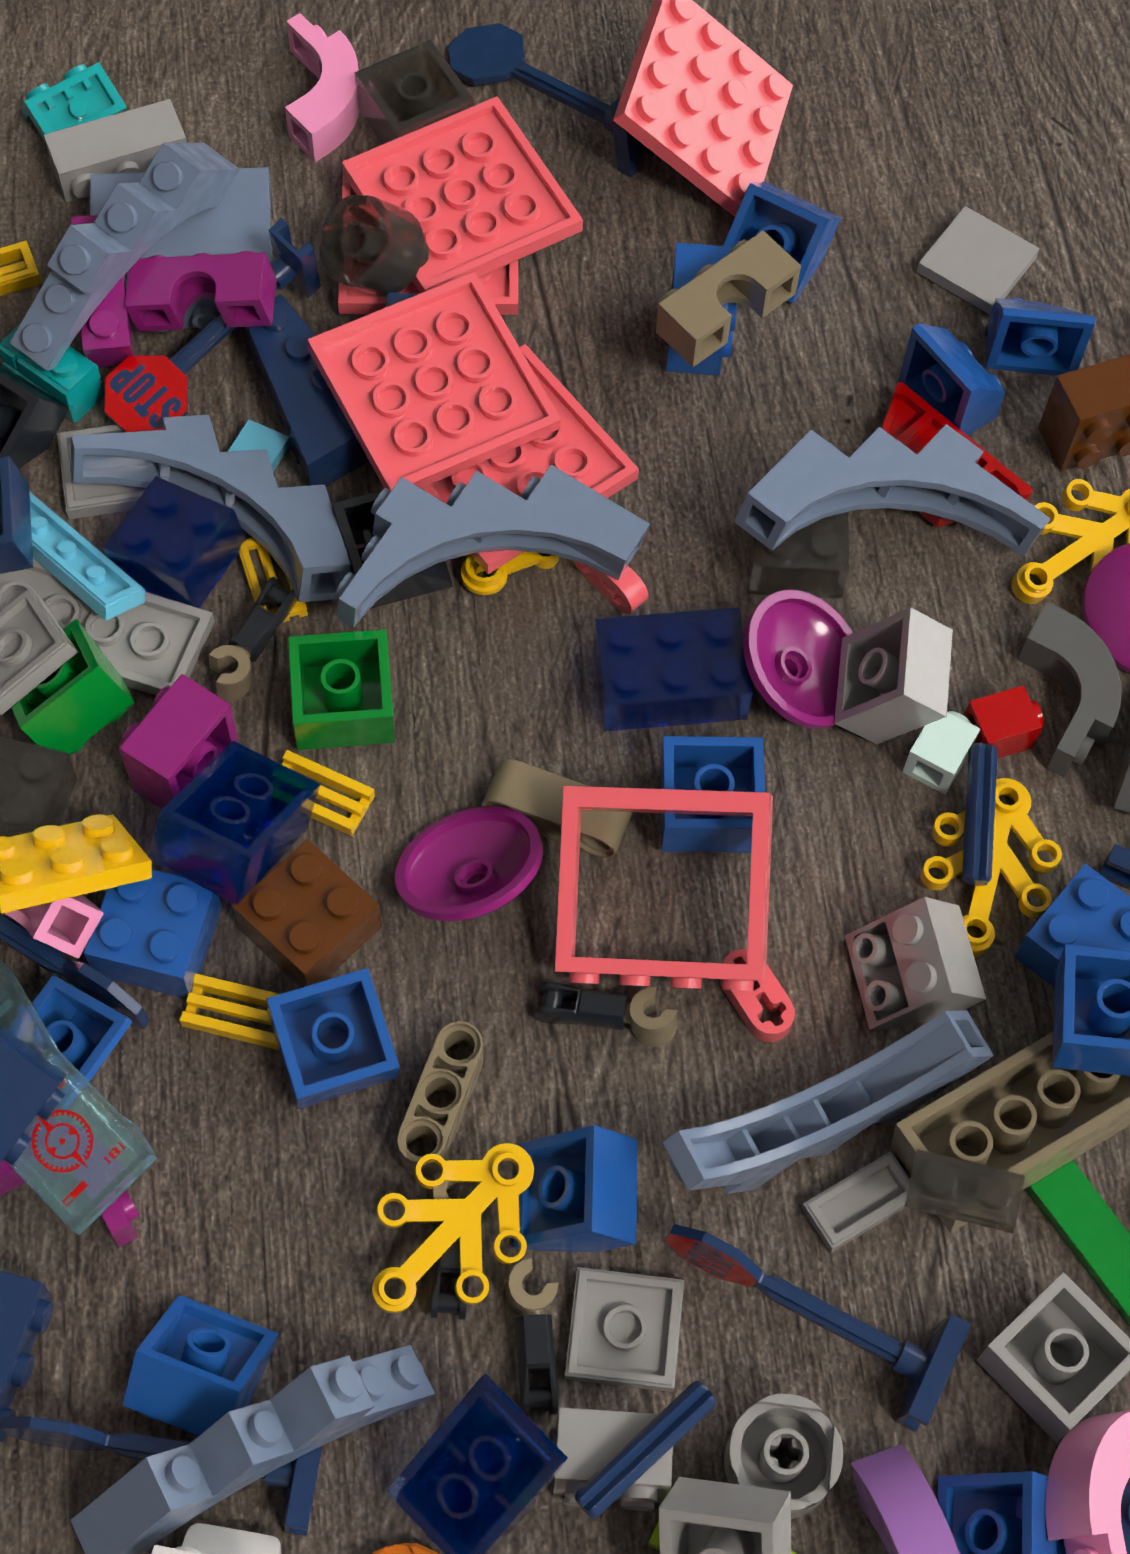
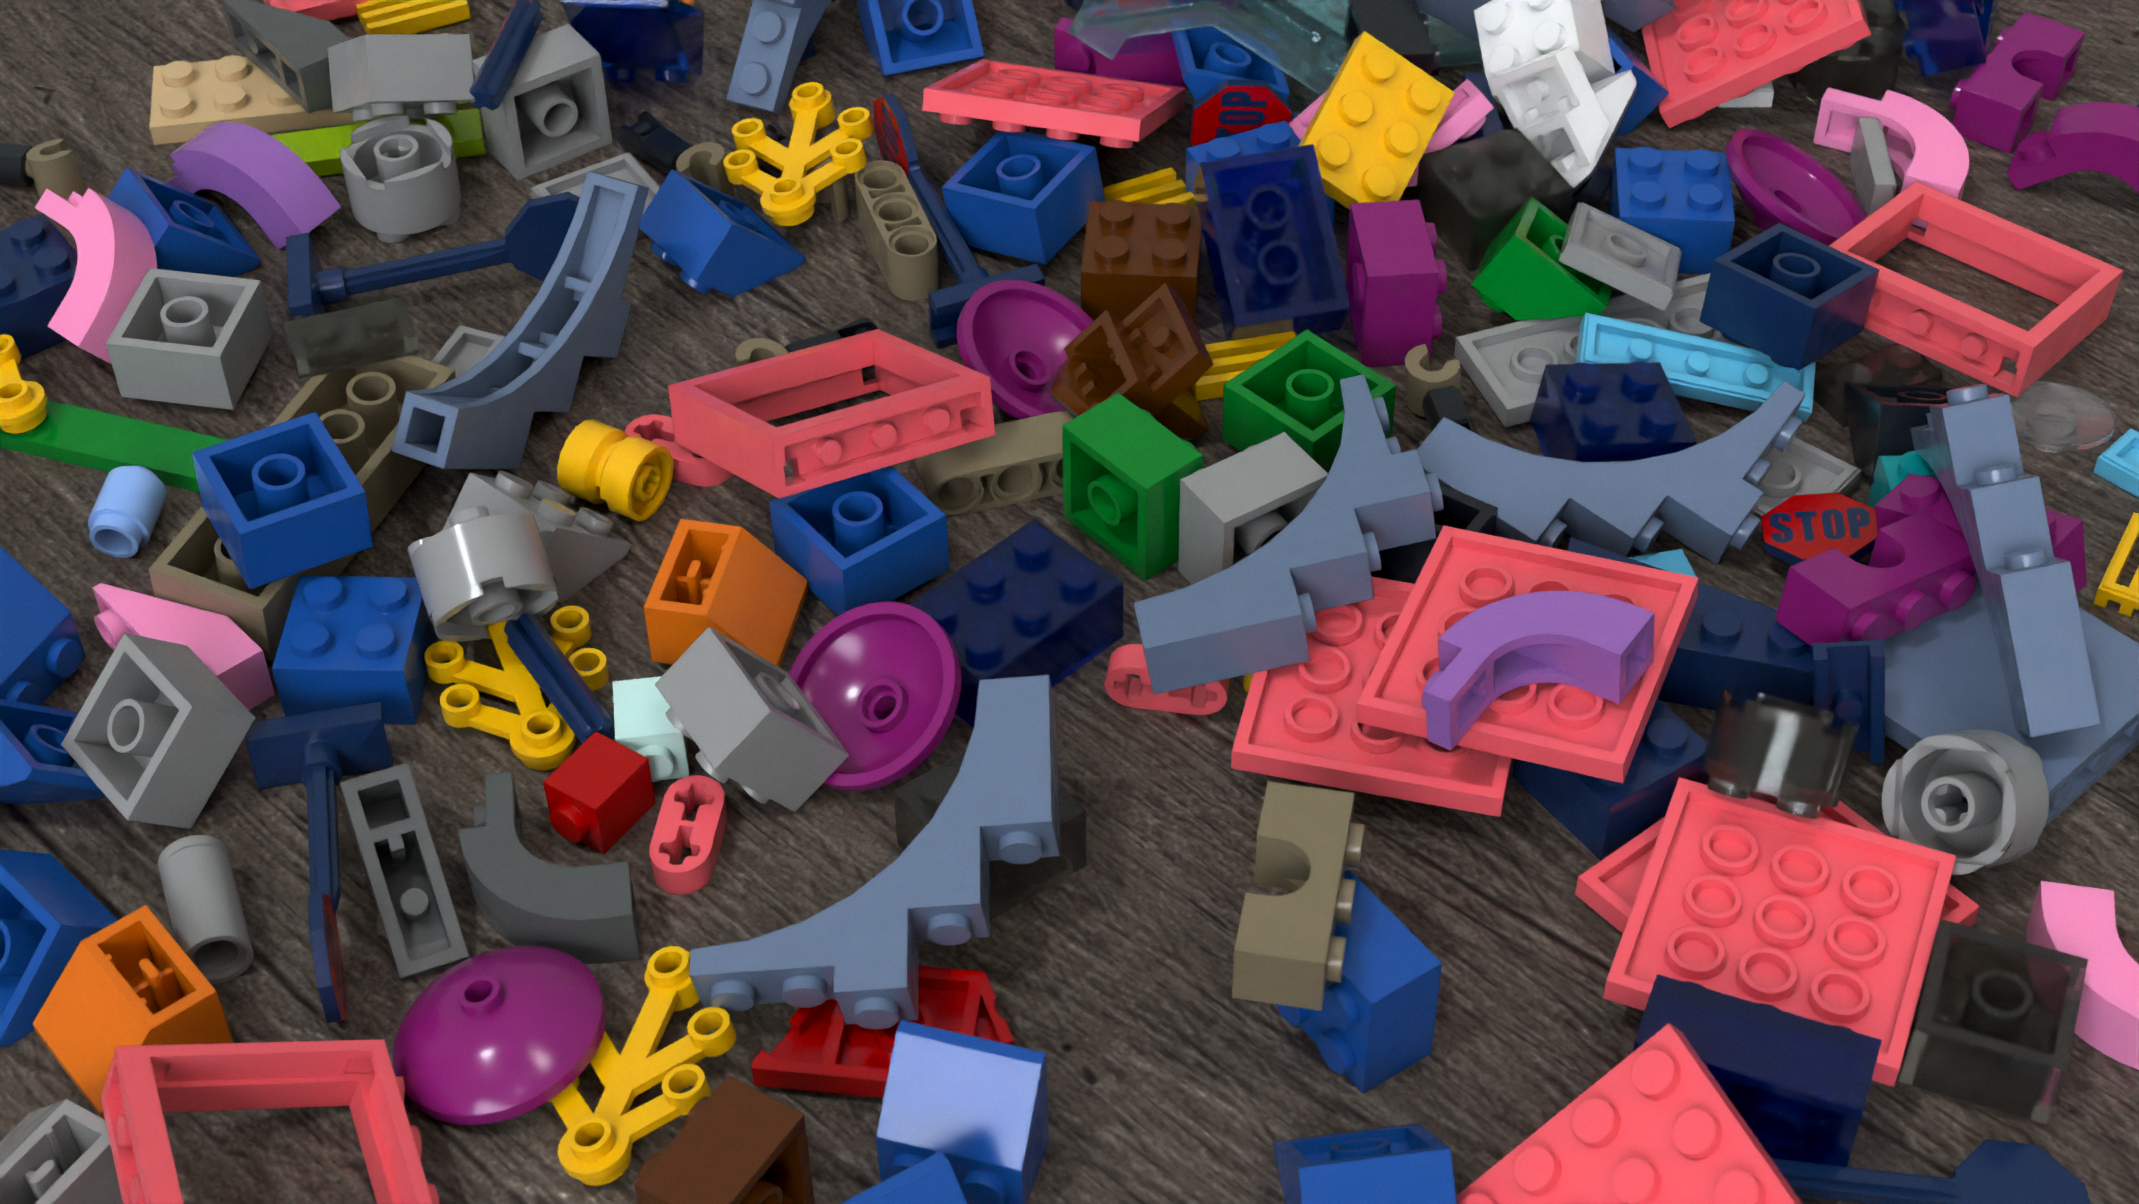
camera: 145 degrees right, 20 degrees down
(227, 1114) = (1054, 100): none -> coral plate
(299, 179) = (2002, 790): none -> light grey brick
(428, 785) = (1145, 358): none -> reddish brown piece
(444, 969) = (944, 304): none -> dark blue piece
(459, 354) = (1535, 640): none -> medium lavender arch
(470, 617) = (1242, 504): none -> light grey brick
(512, 697) = (1126, 483): none -> green brick
(571, 139) = (1785, 1074): none -> clear blue brick
(823, 977) = (610, 467): none -> yellow wheel
(837, 809) = (722, 582): none -> orange slope
(971, 680) = (675, 832): none -> coral beam
(996, 886) = (483, 573): none -> light grey brick

